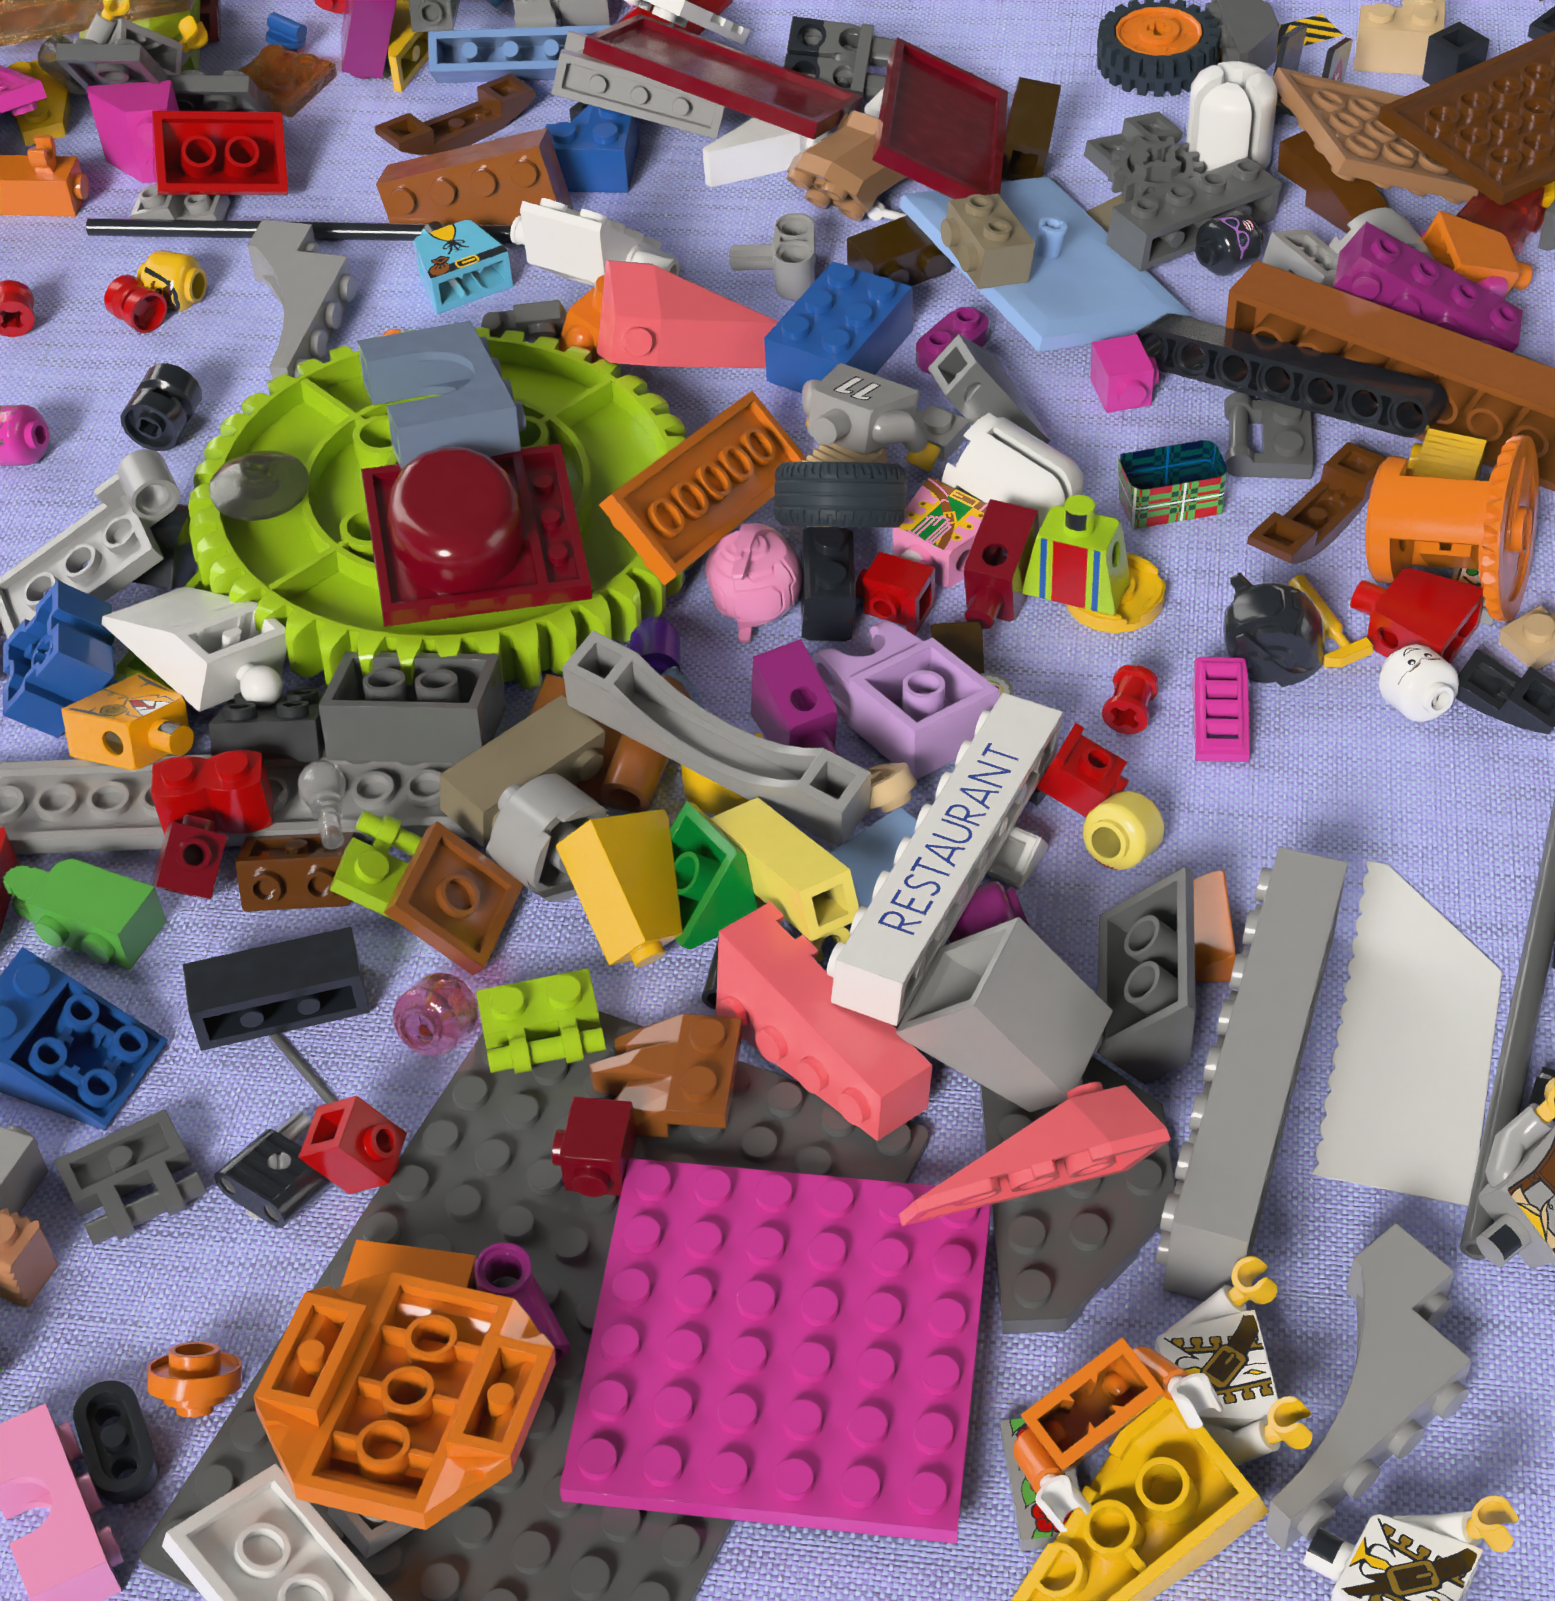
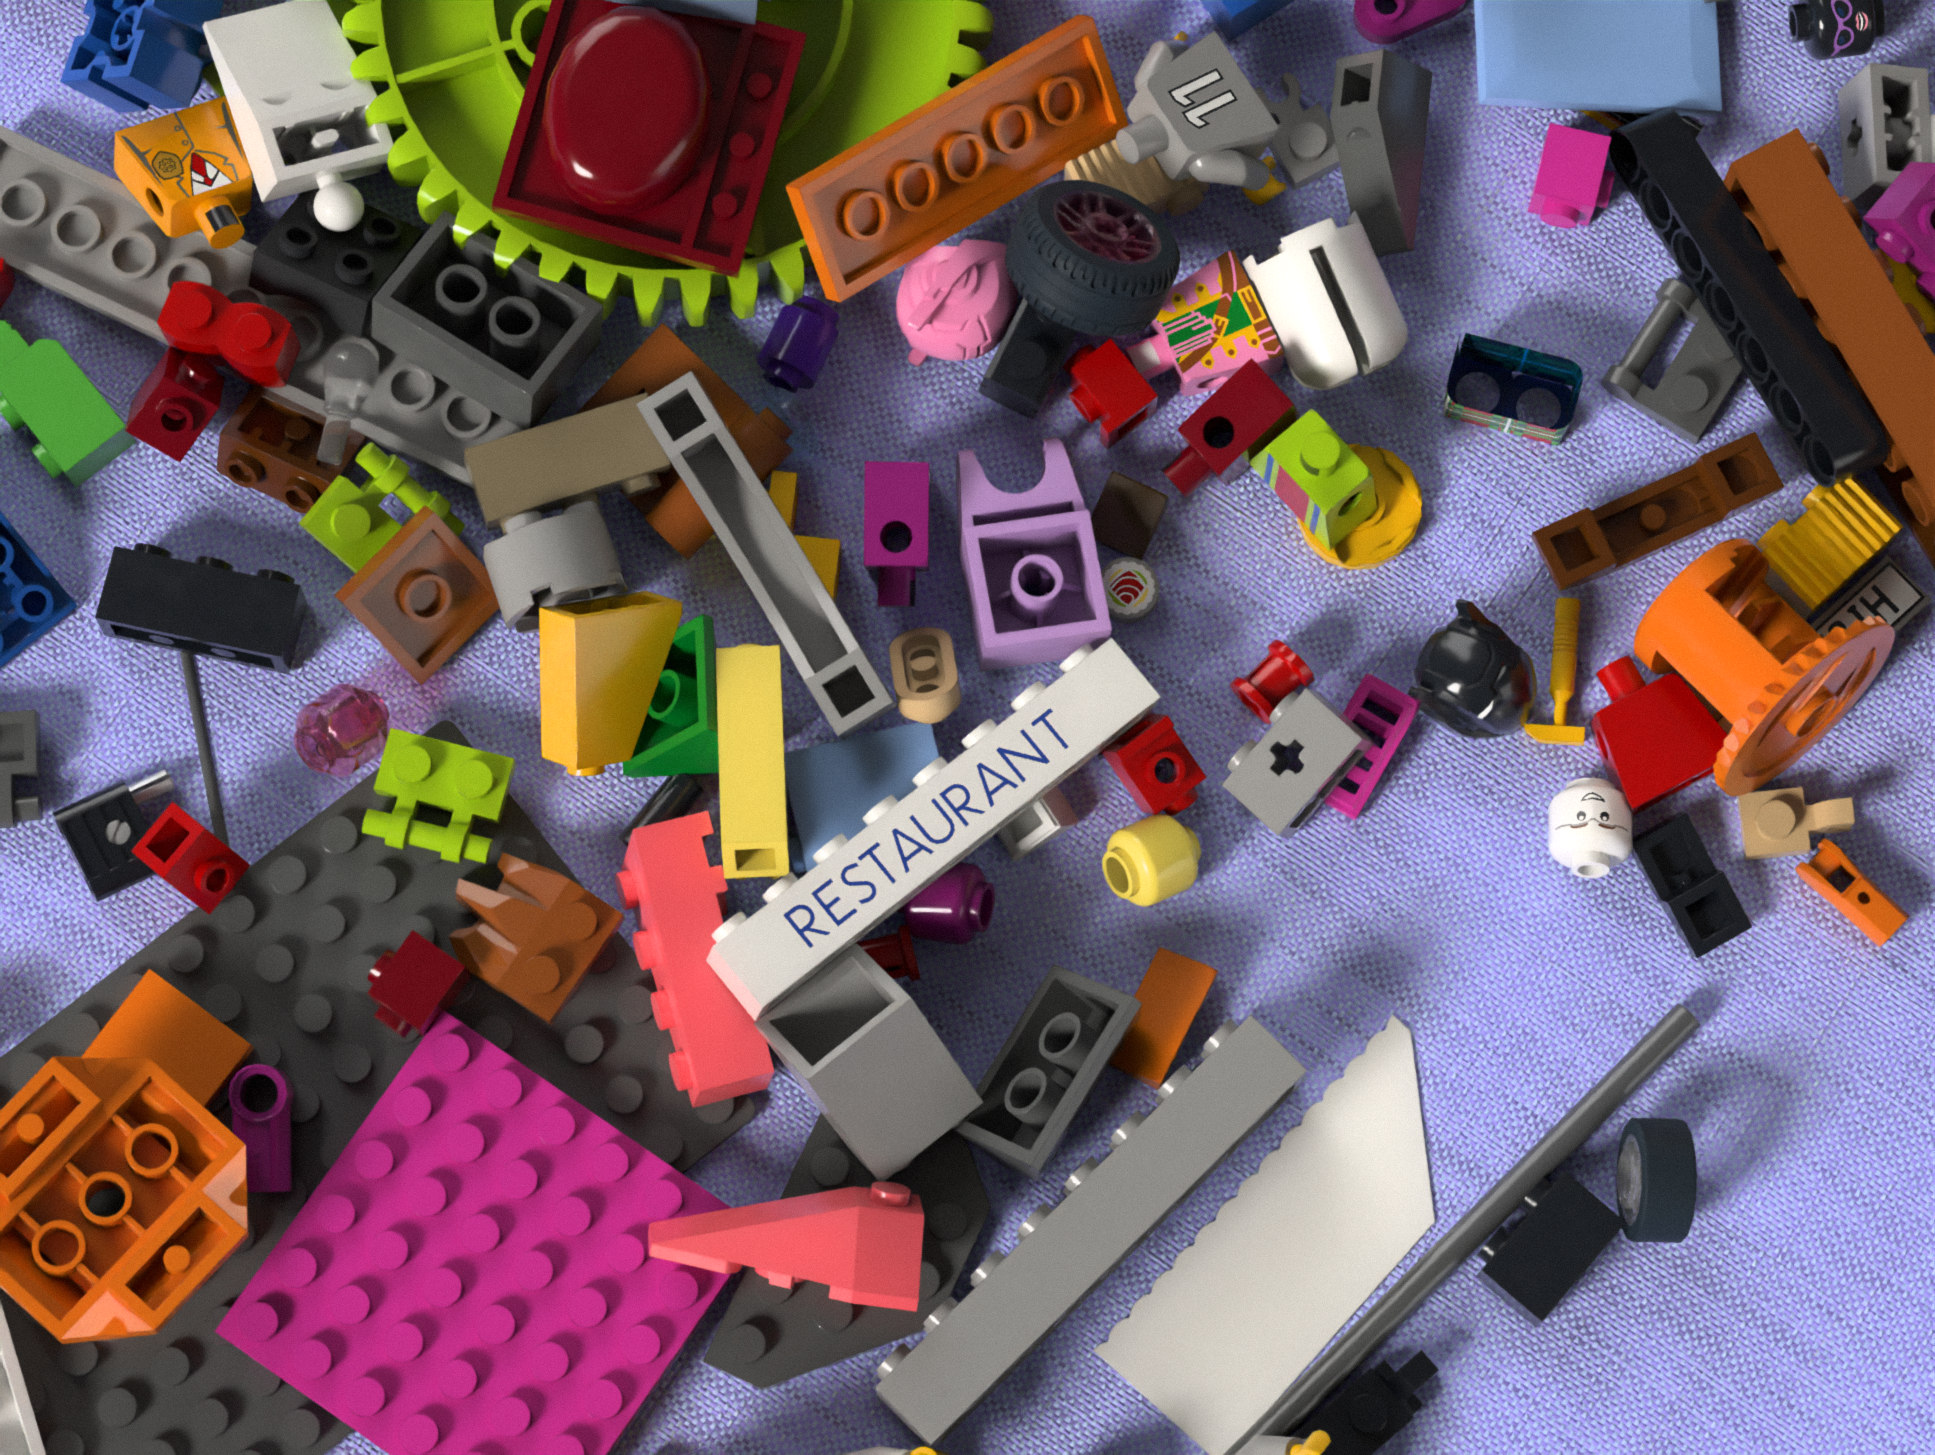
camera: 25 degrees right, 30 degrees up
(1187, 752) = (1330, 752): none -> light grey brick

